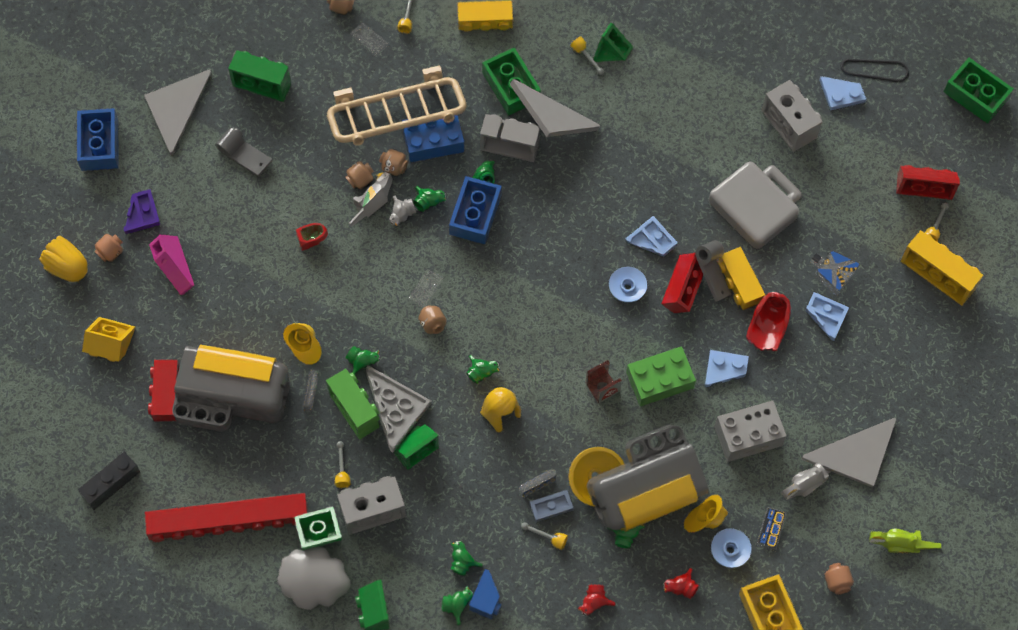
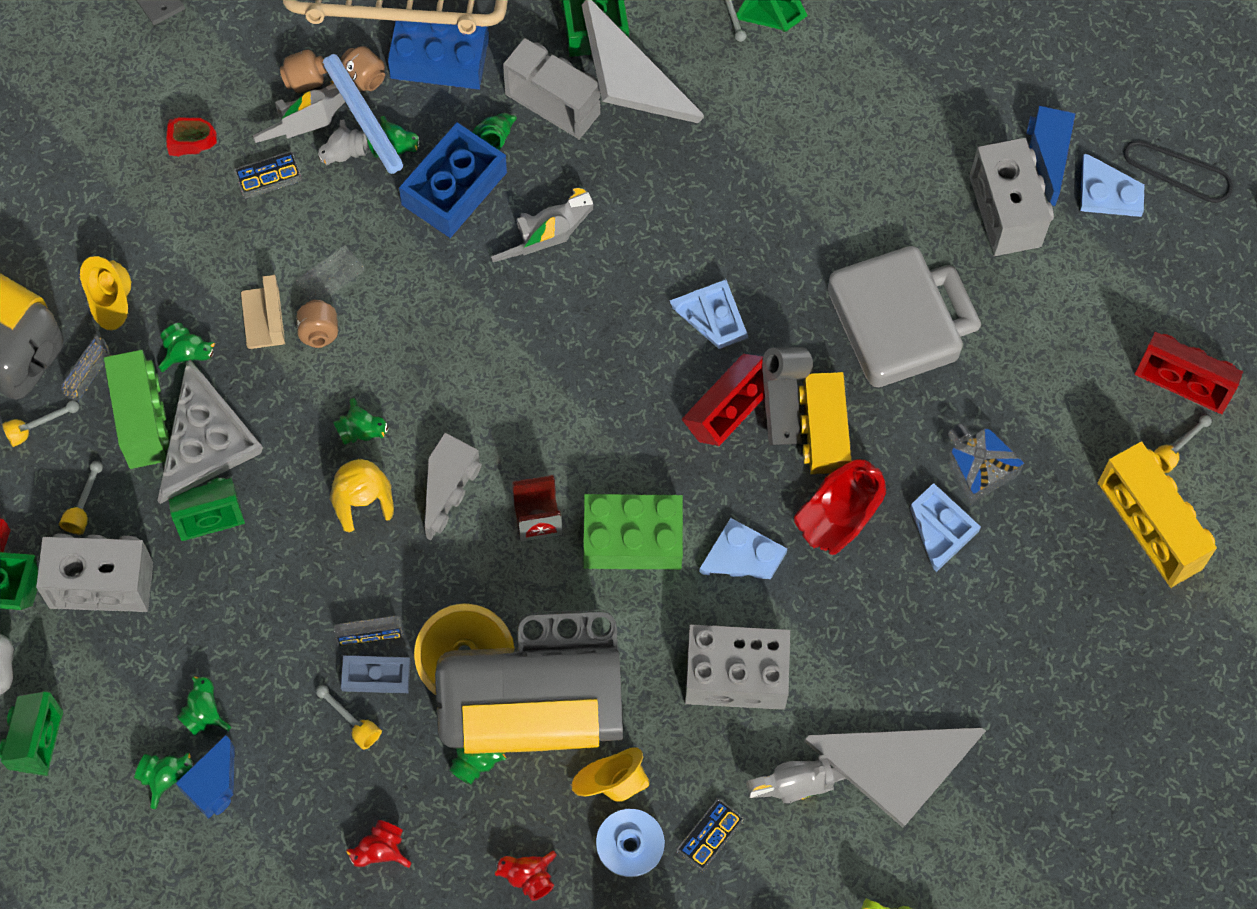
camera: 20 degrees right, 0 degrees up
(285, 440) = (18, 431): none -> hinge
(364, 242) = (268, 175): none -> tile
(398, 324) = (263, 315): none -> tan panel
(407, 188) = (363, 114): none -> light blue axle
(540, 217) = (550, 225): none -> light grey animal
(542, 379) = (448, 472): none -> light grey slope
(628, 276) = (642, 359): light blue dish -> none
(799, 72) = (1050, 141): none -> blue slope

